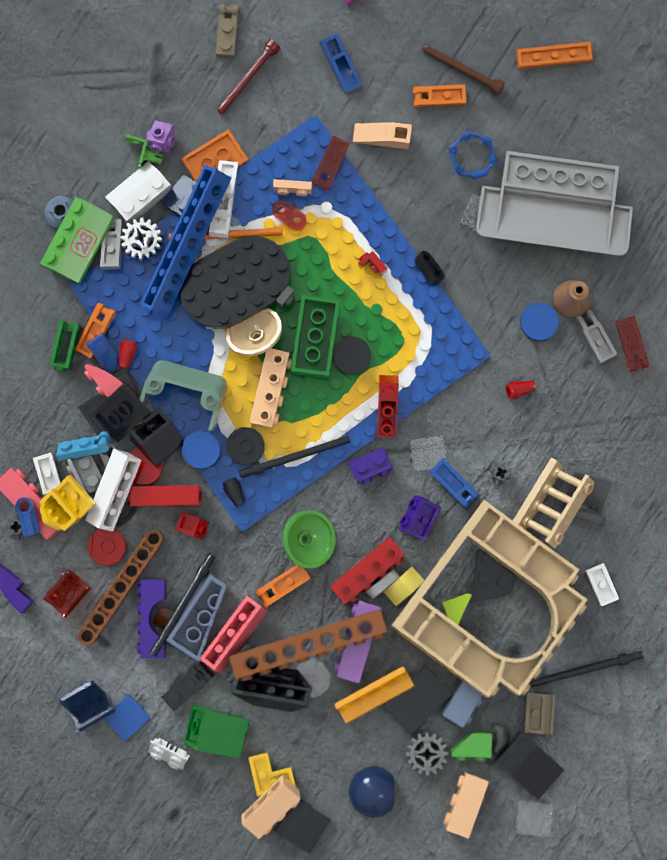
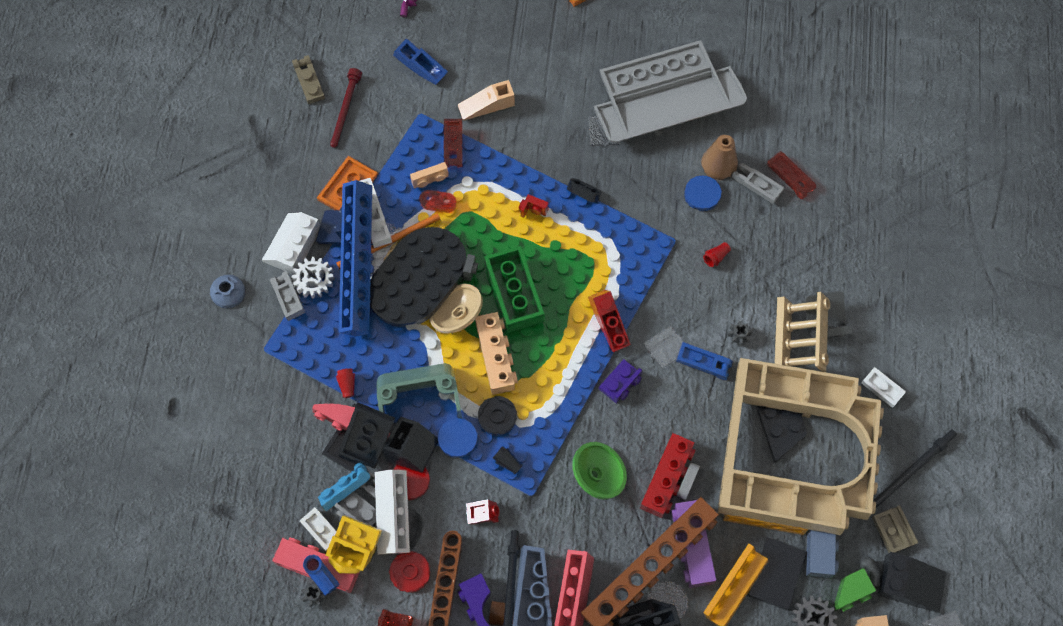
camera: 25 degrees left, 15 degrees down
(62, 328) = (287, 425): green window -> none
(77, 240) = (253, 305): bright green slope -> none
(95, 327) = (307, 377): orange plate -> none
(104, 353) = (324, 391): blue plate -> none
(146, 154) = (283, 207): bright green bracket -> none
(161, 137) = (290, 186): medium lavender brick -> none
(165, 496) = (445, 495): red slope -> none
(259, 468) = (519, 428): black bar -> none
(283, 584) = (596, 525): orange plate -> none
(352, 355) = (555, 292): black tile -> none
(404, 586) = (707, 475): light yellow slope -> none
(419, 517) = (689, 405): dark purple bracket -> none
(439, 96) = (519, 52): orange plate -> none
(455, 607) = (766, 465): lime slope -> none
(476, 174) = (584, 98): blue piece -> none
(494, 85) = (561, 25): reddish brown piece -> none

